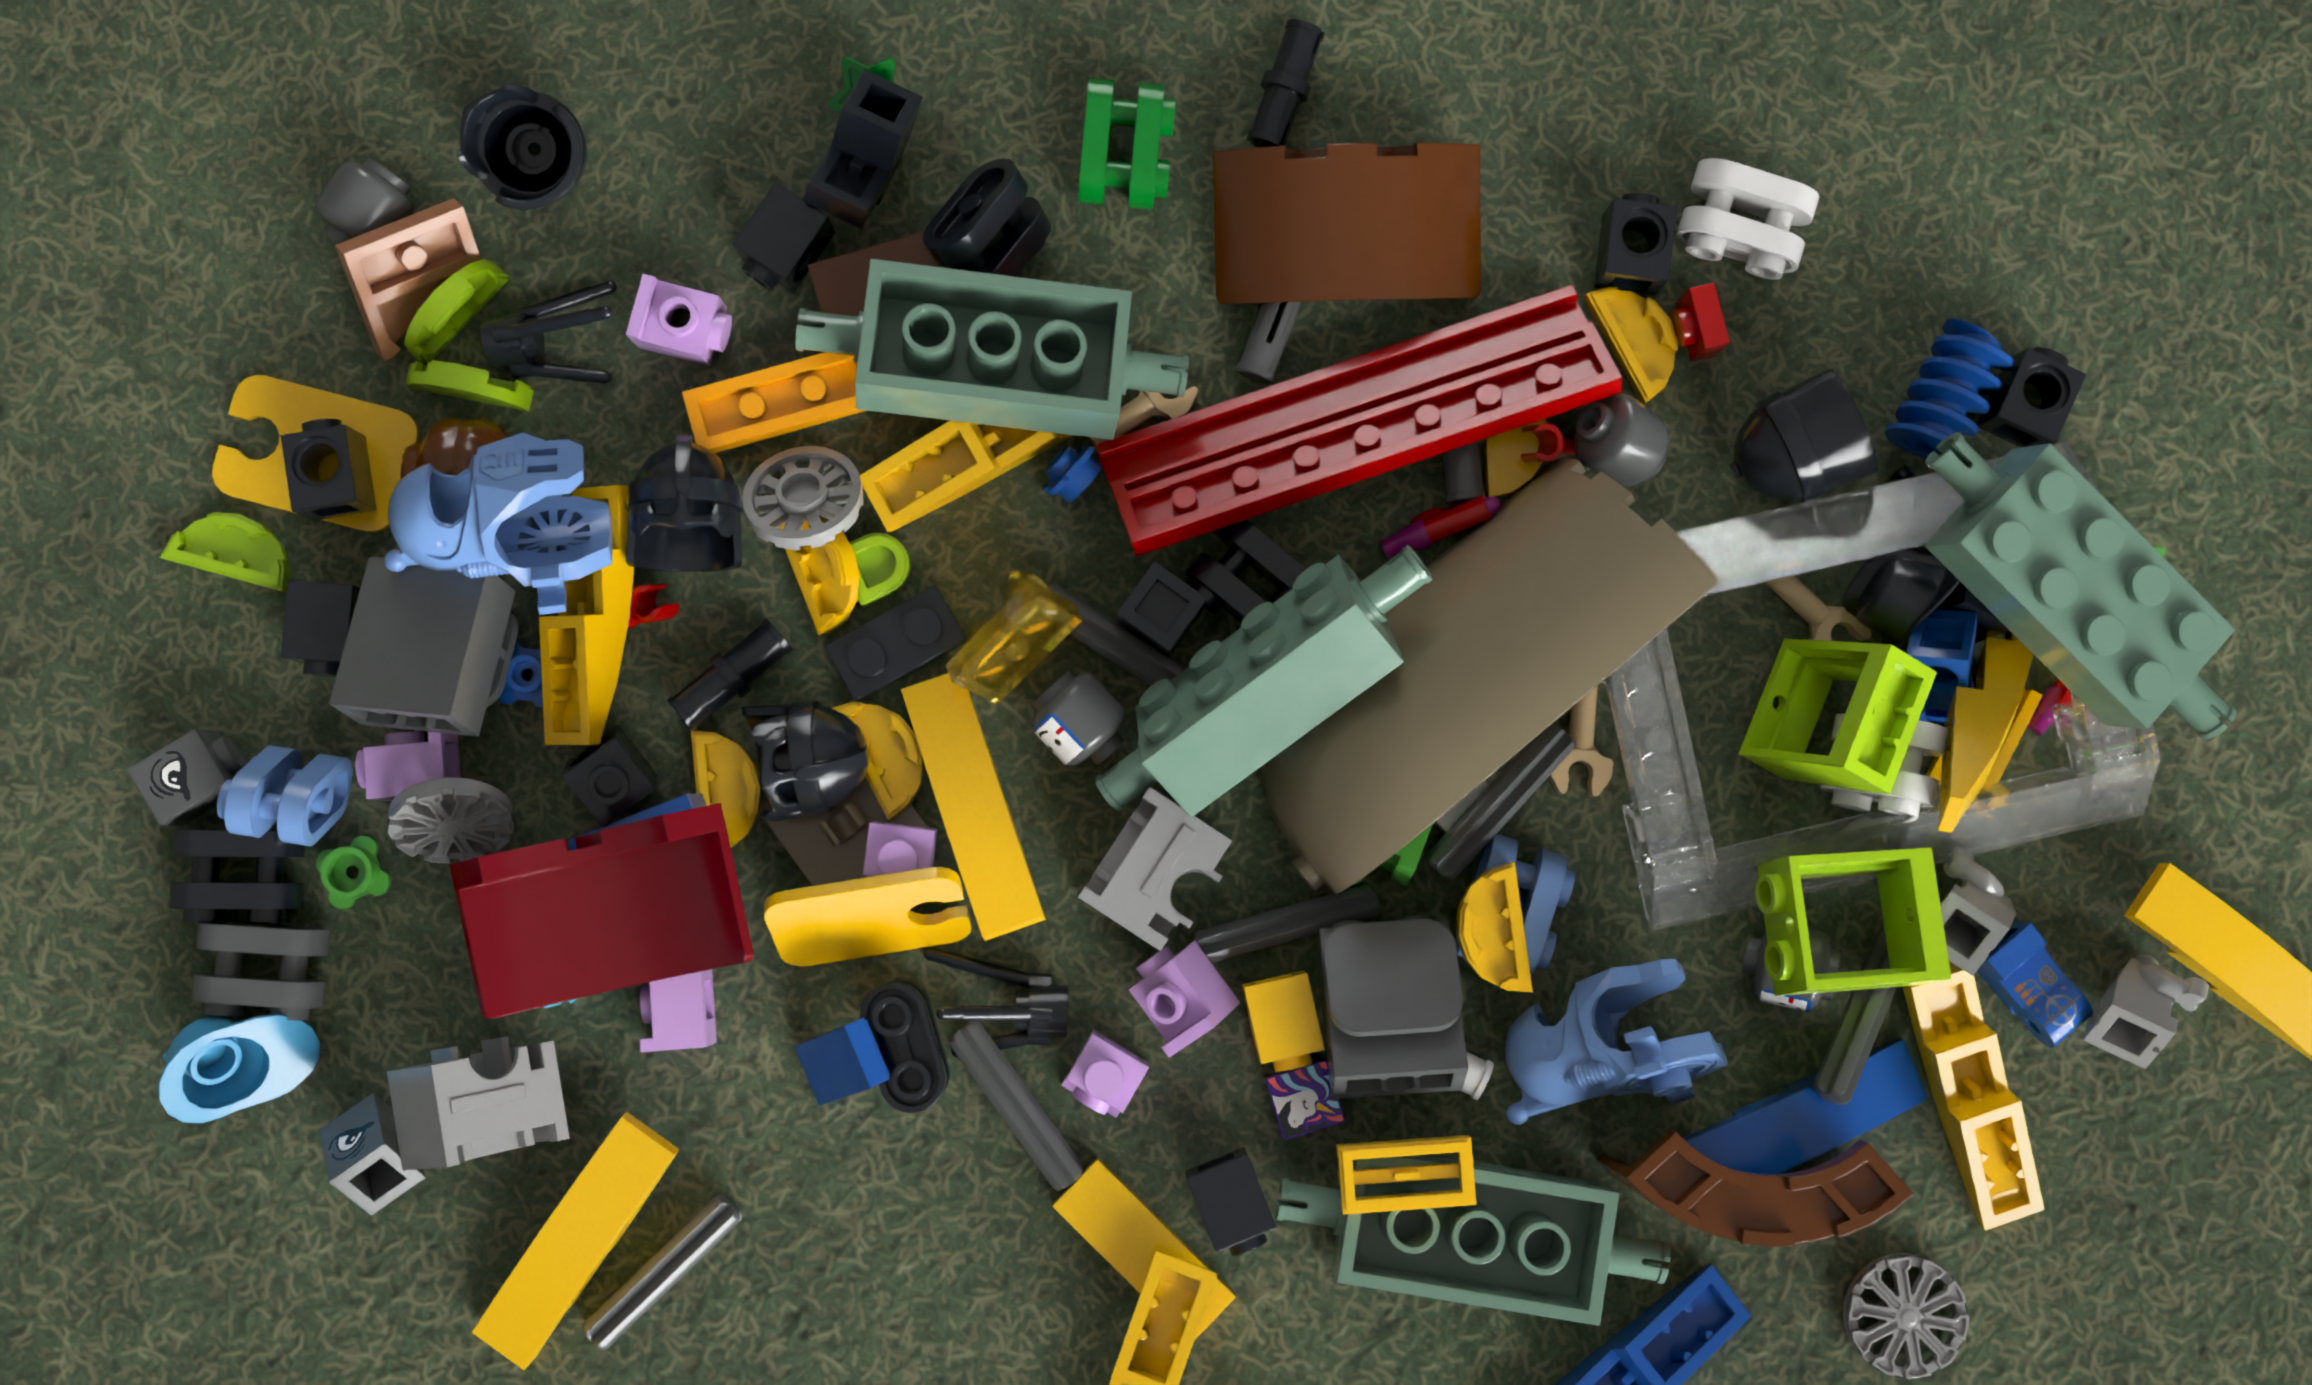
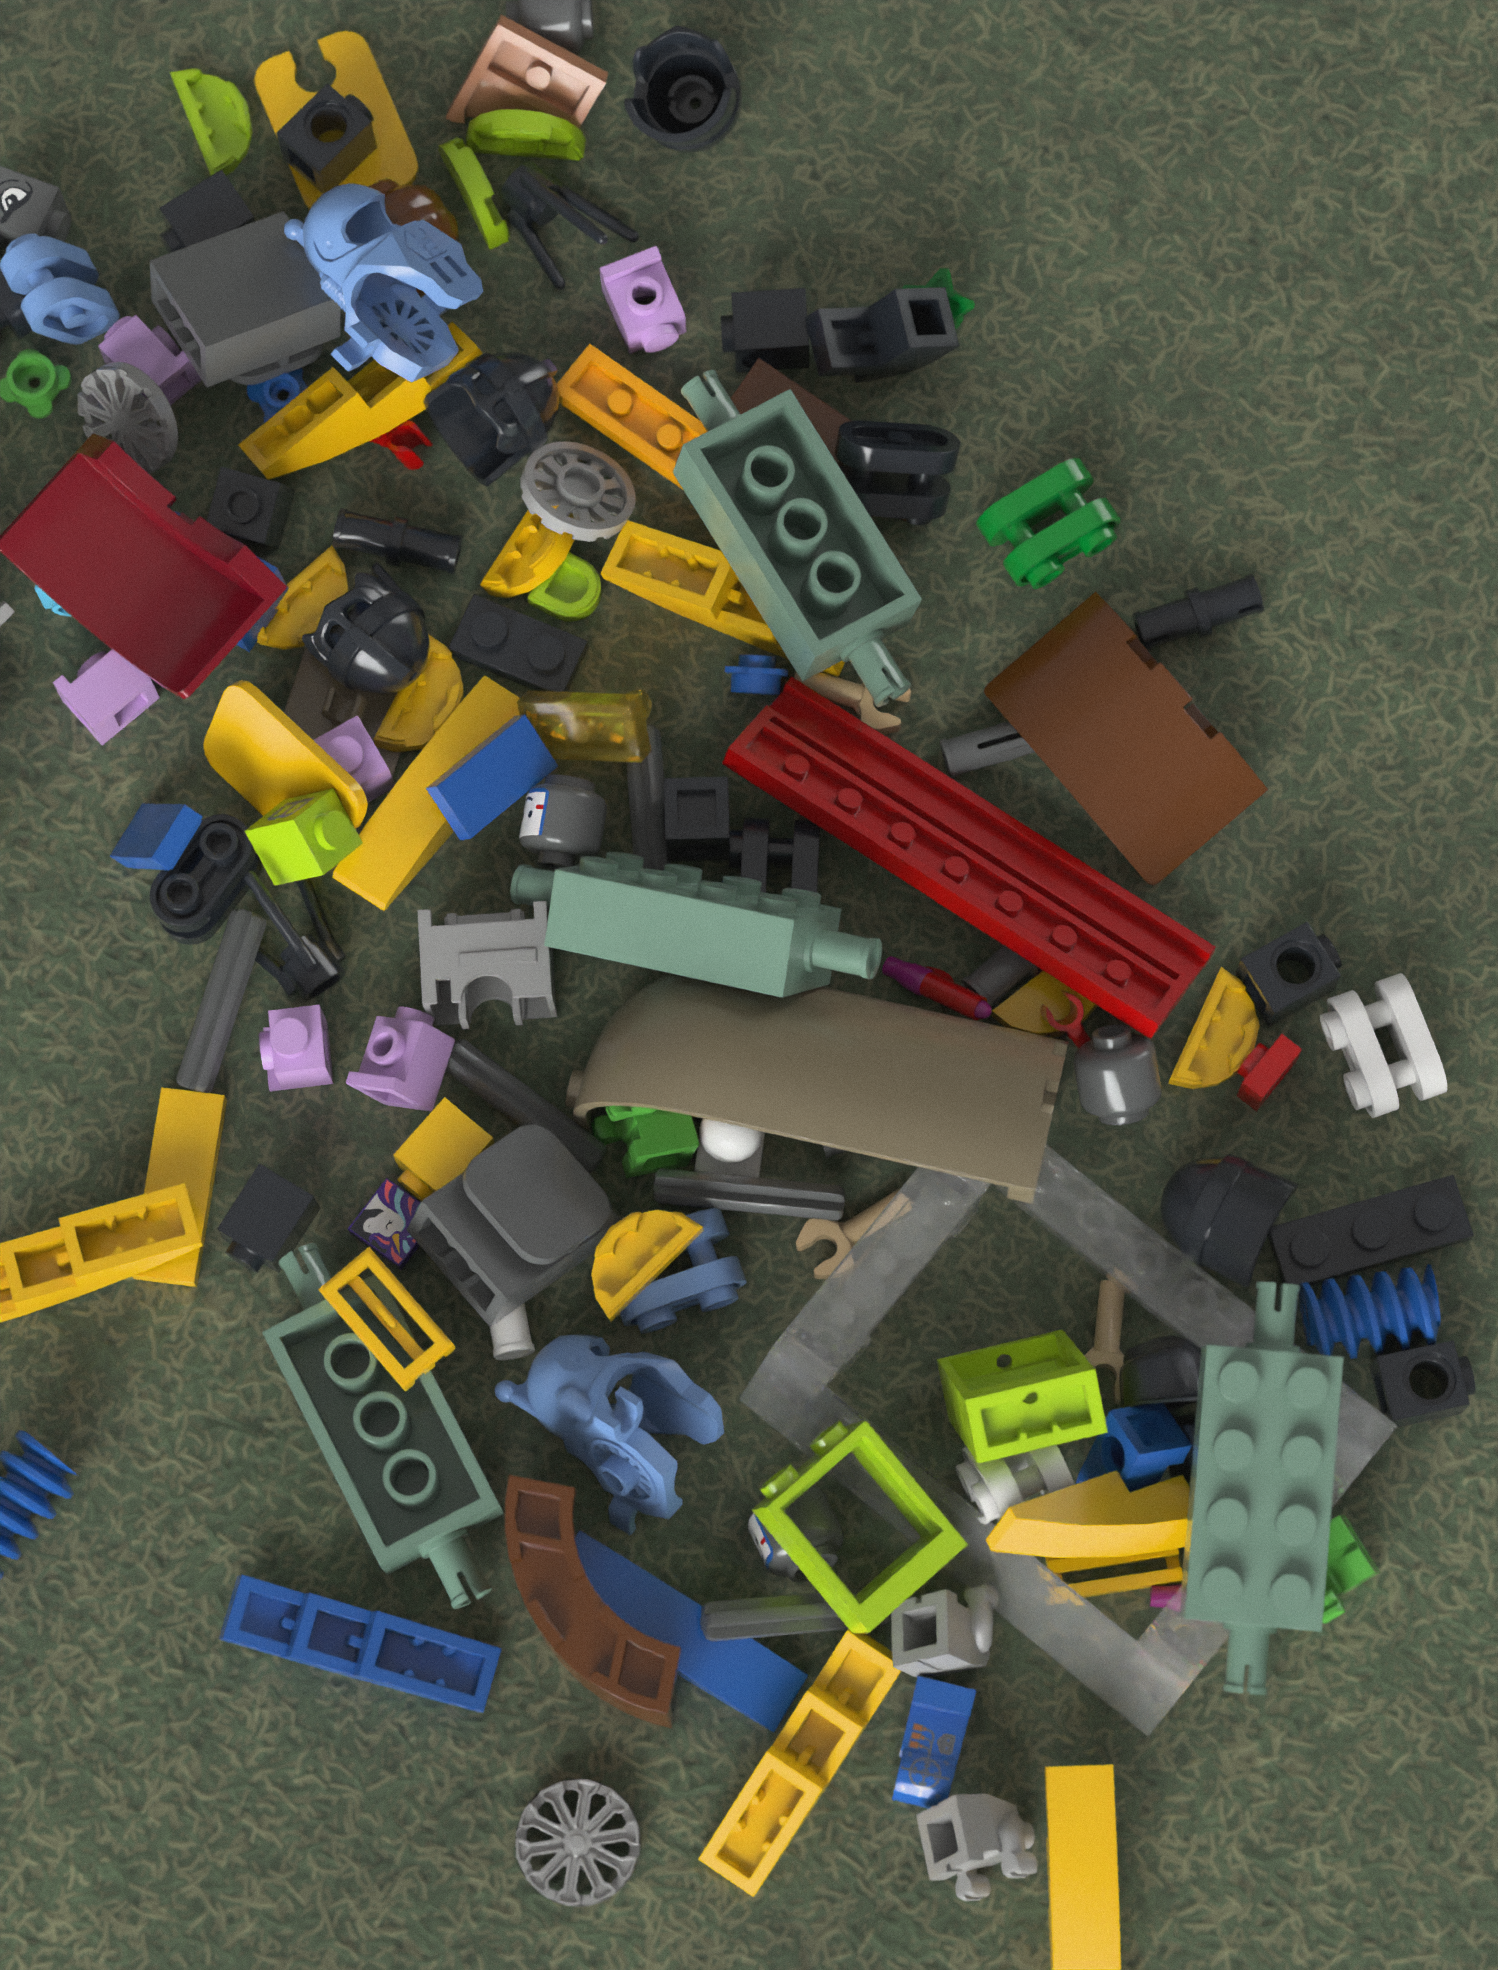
camera: 65 degrees right, 10 degrees down
(939, 942) = (303, 837): none -> lime brick
(1001, 749) = (492, 777): none -> blue tile
(1885, 333) = (1370, 1232): none -> black plate

